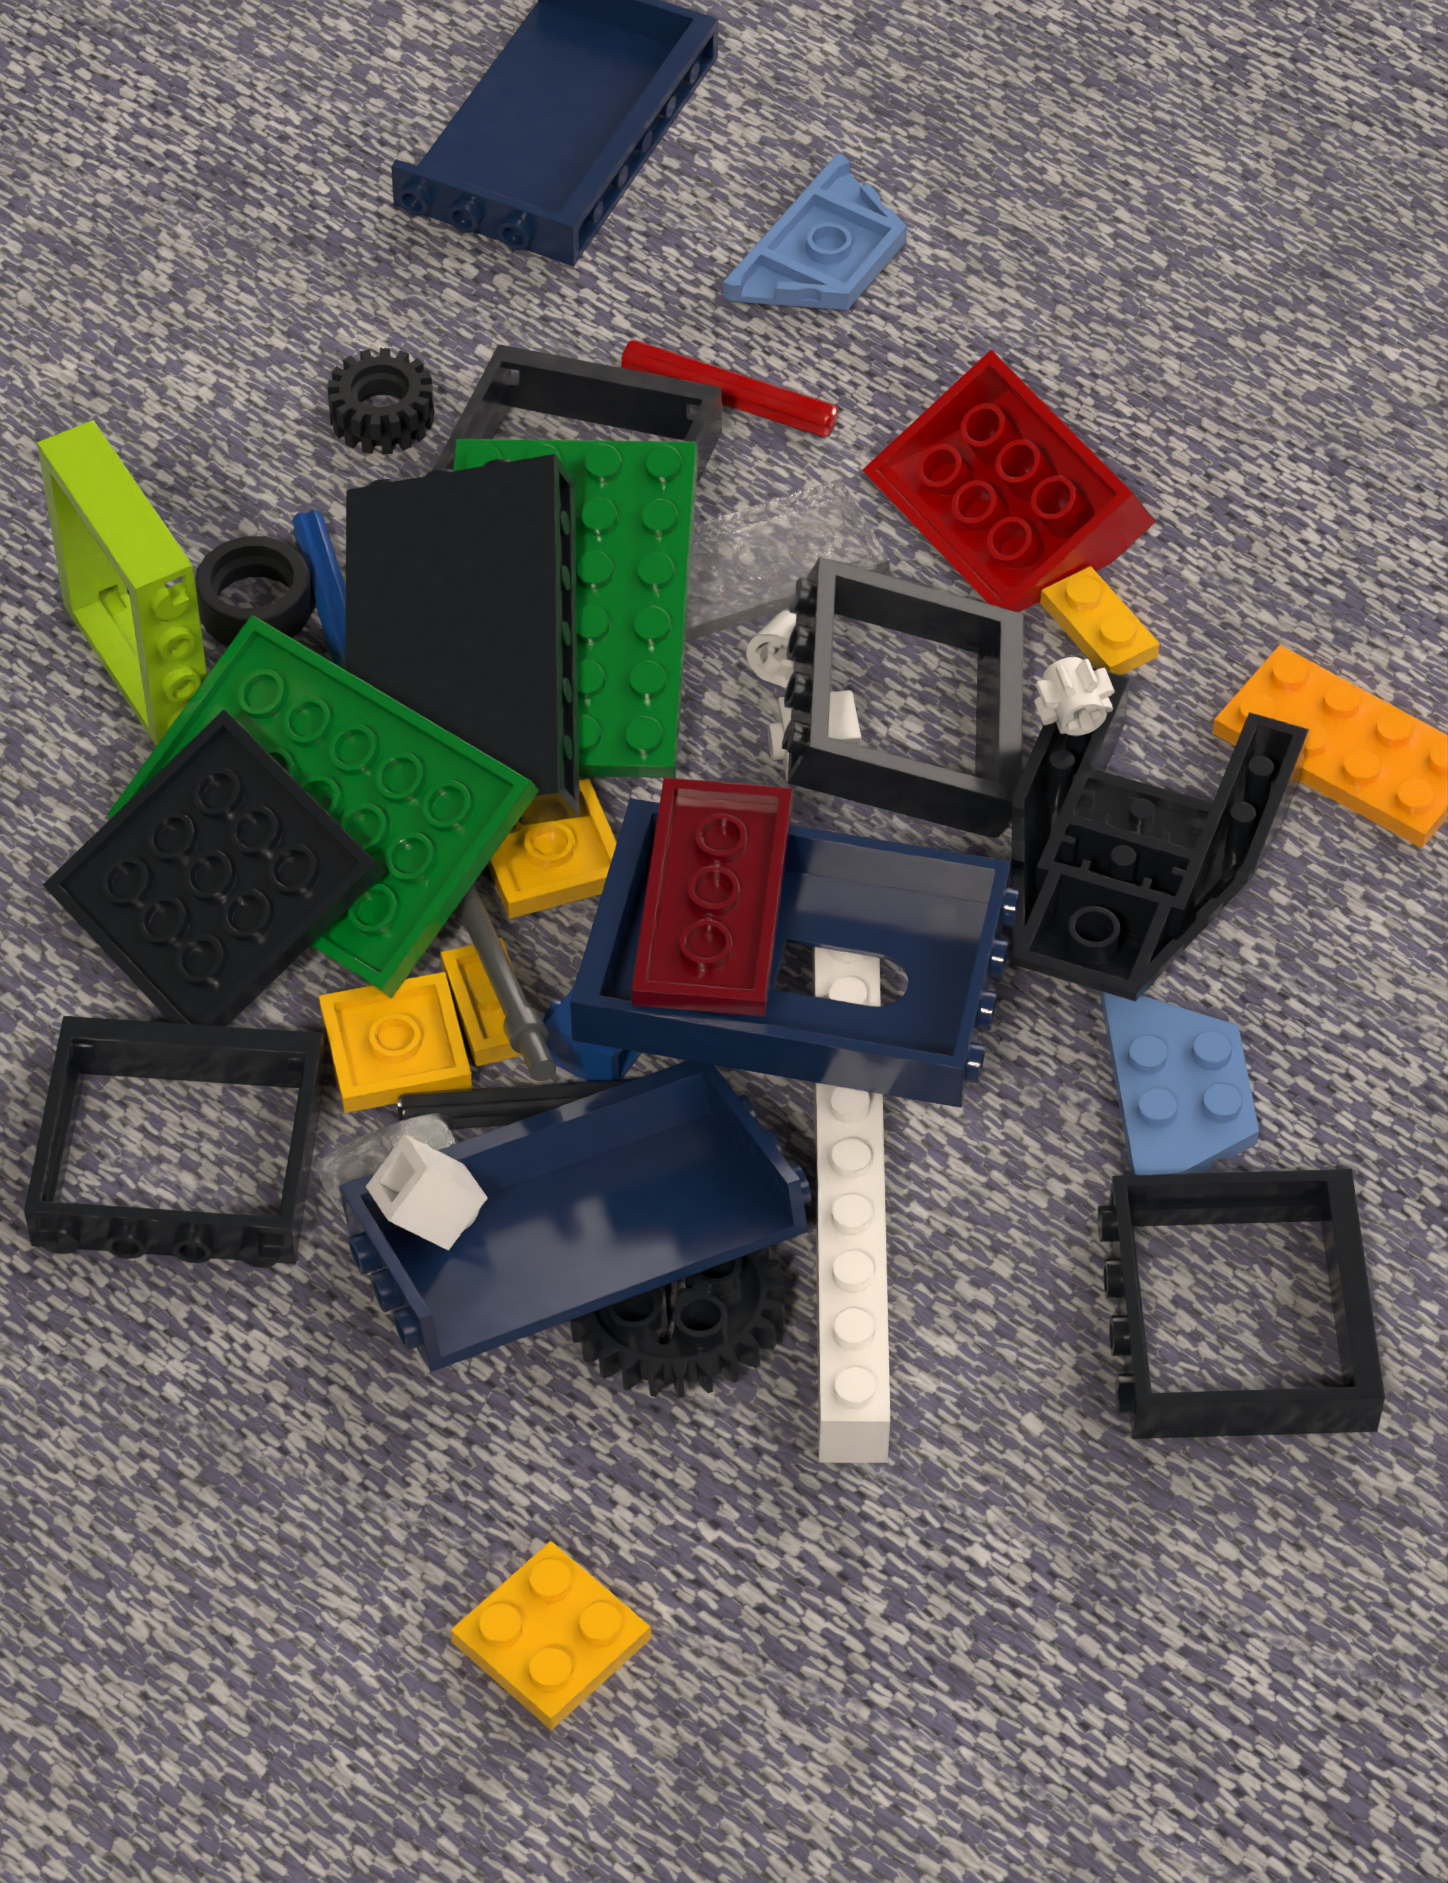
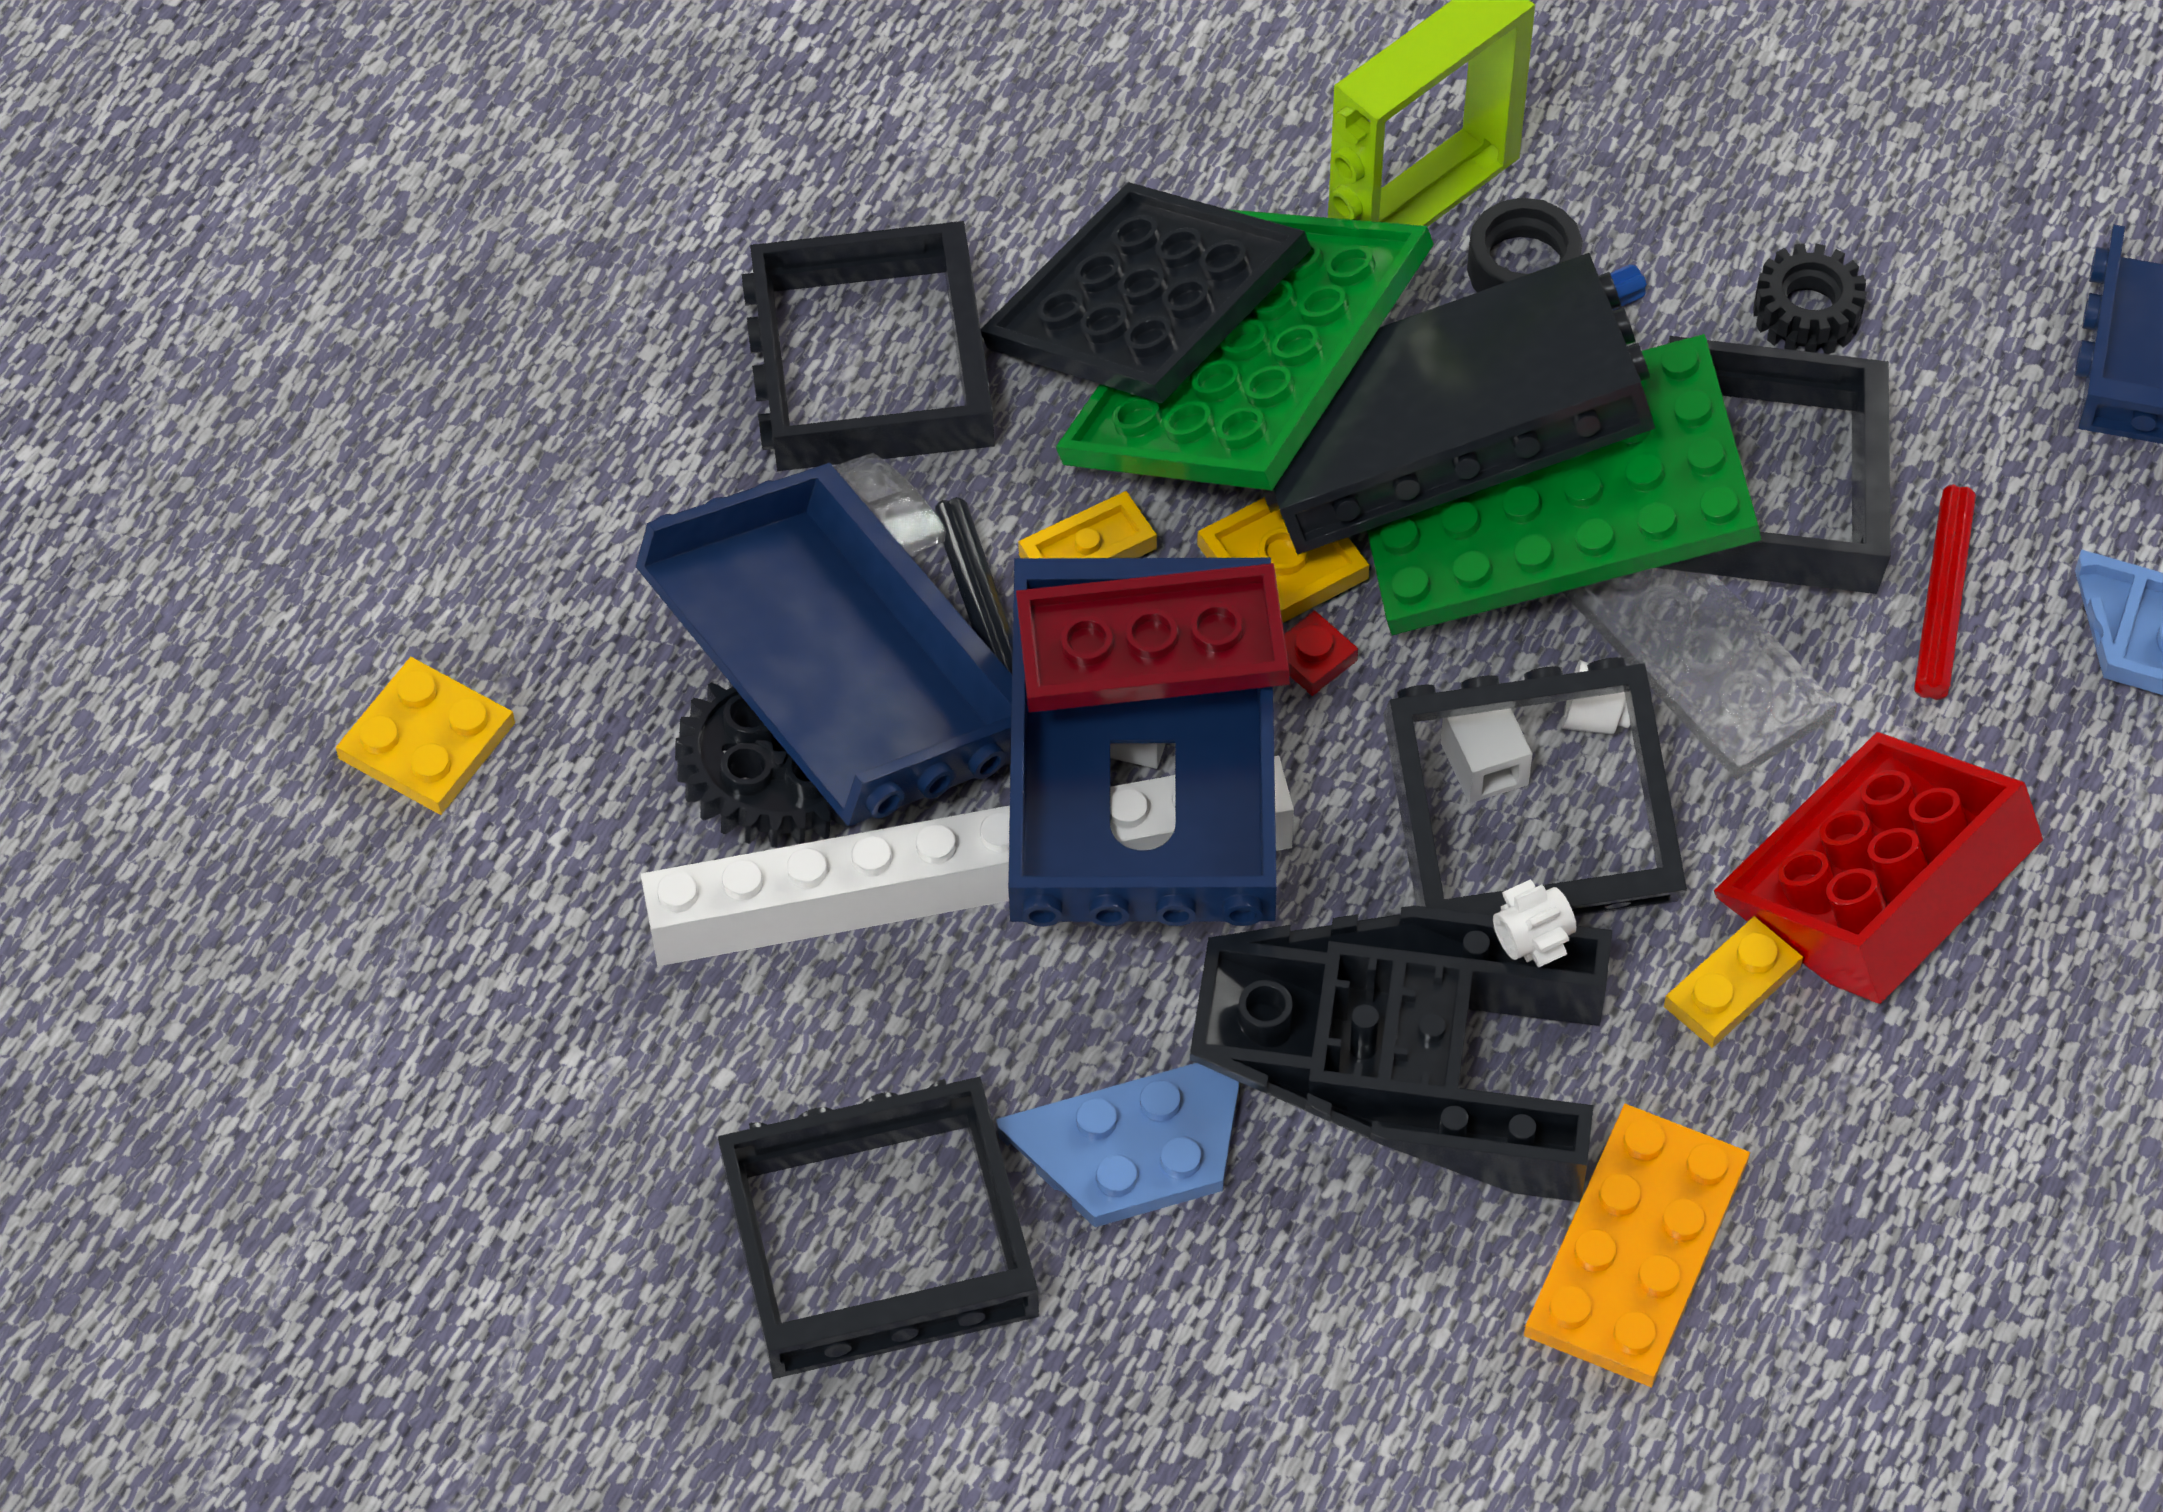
camera: 80 degrees right, 5 degrees up
(394, 1043) = (1018, 481): yellow plate -> none
(426, 1192) = (823, 523): white brick -> none
(522, 1023) = (1094, 529): dark grey bar -> none

